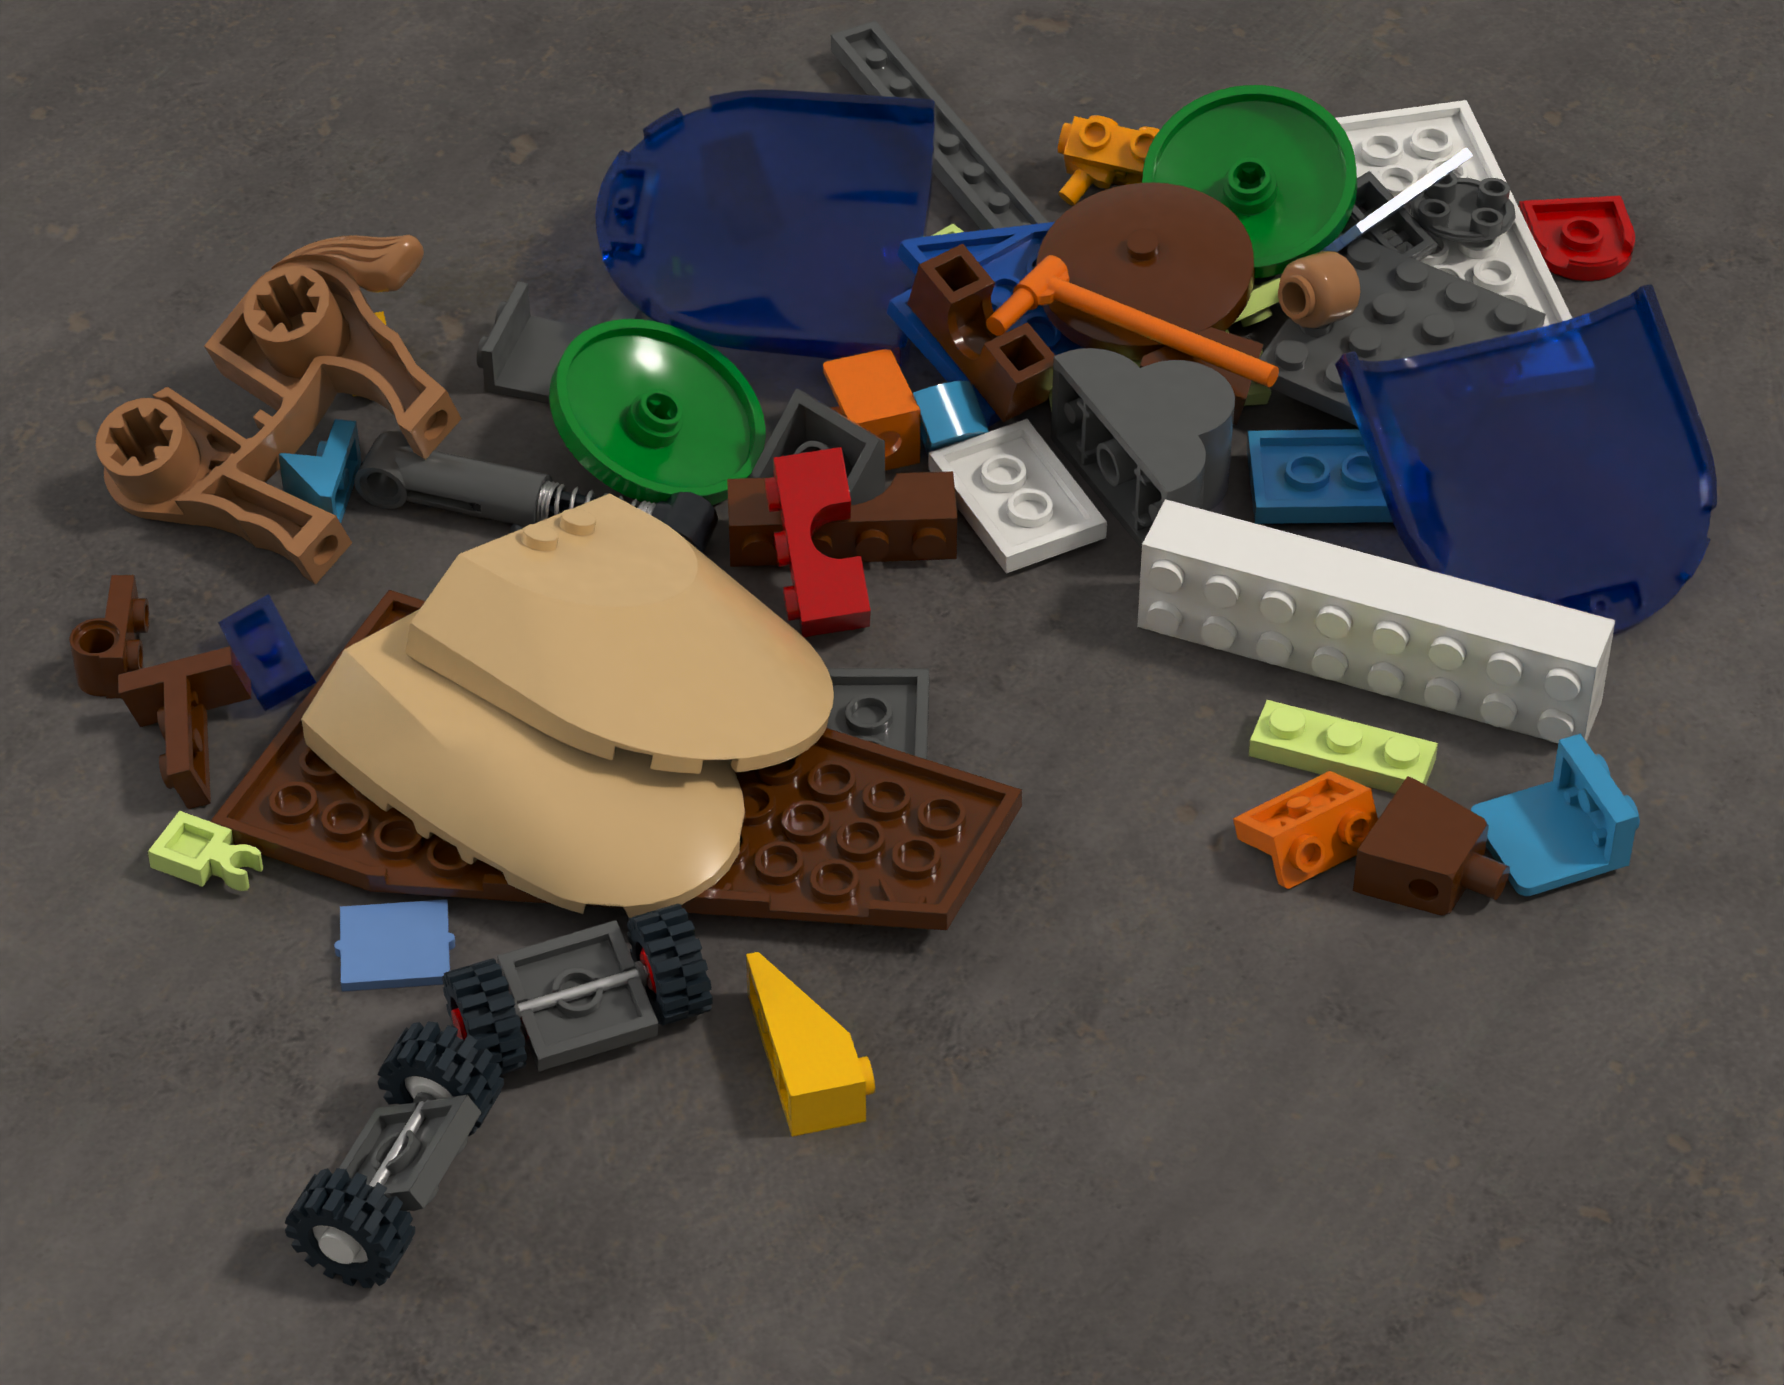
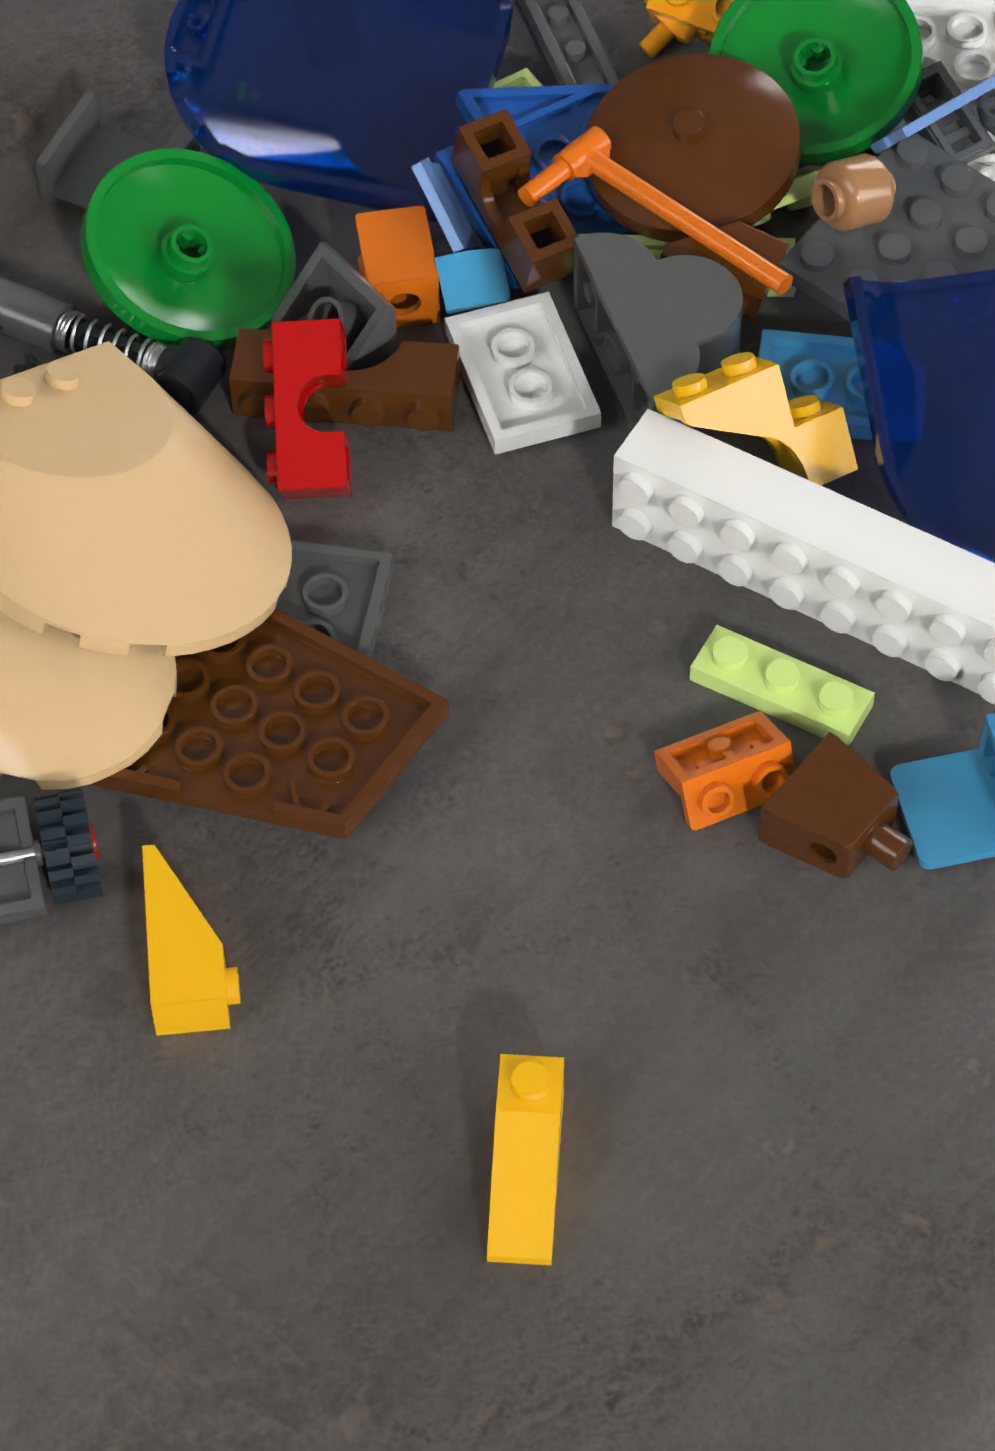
camera: 10 degrees right, 10 degrees up
(910, 343) = (446, 206): none -> medium blue piece
(1198, 1195) = (525, 1159): none -> yellow slope
(1266, 483) = (751, 399): none -> yellow arch

